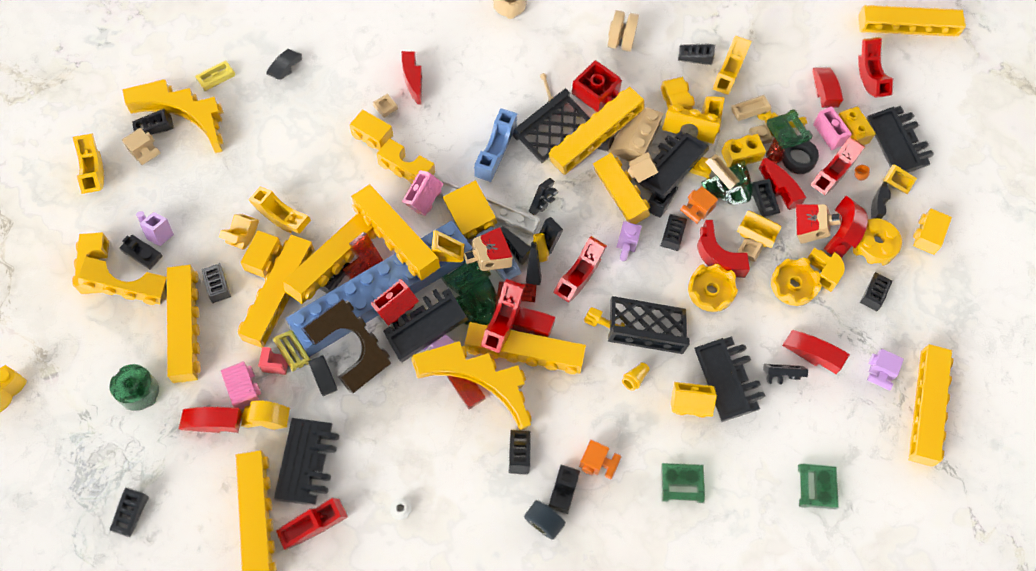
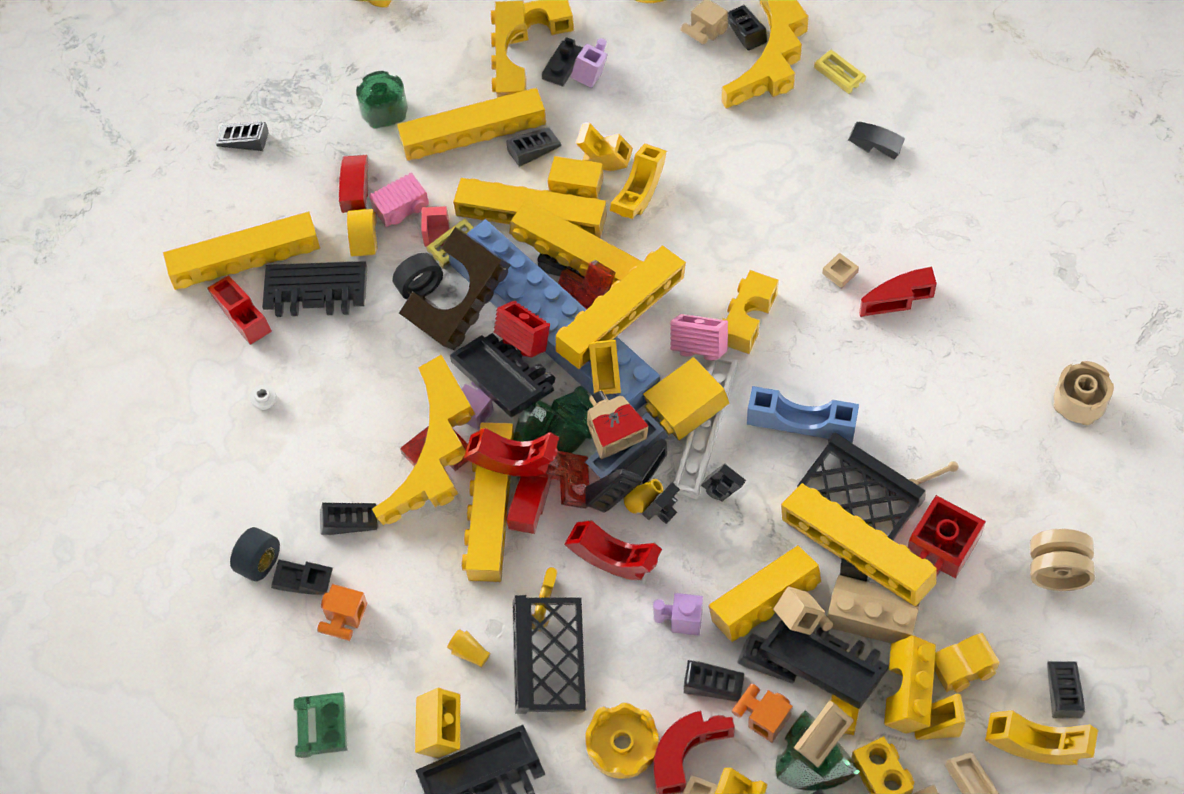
camera: 90 degrees right, 5 degrees down
(371, 129) = (790, 258): yellow brick -> none

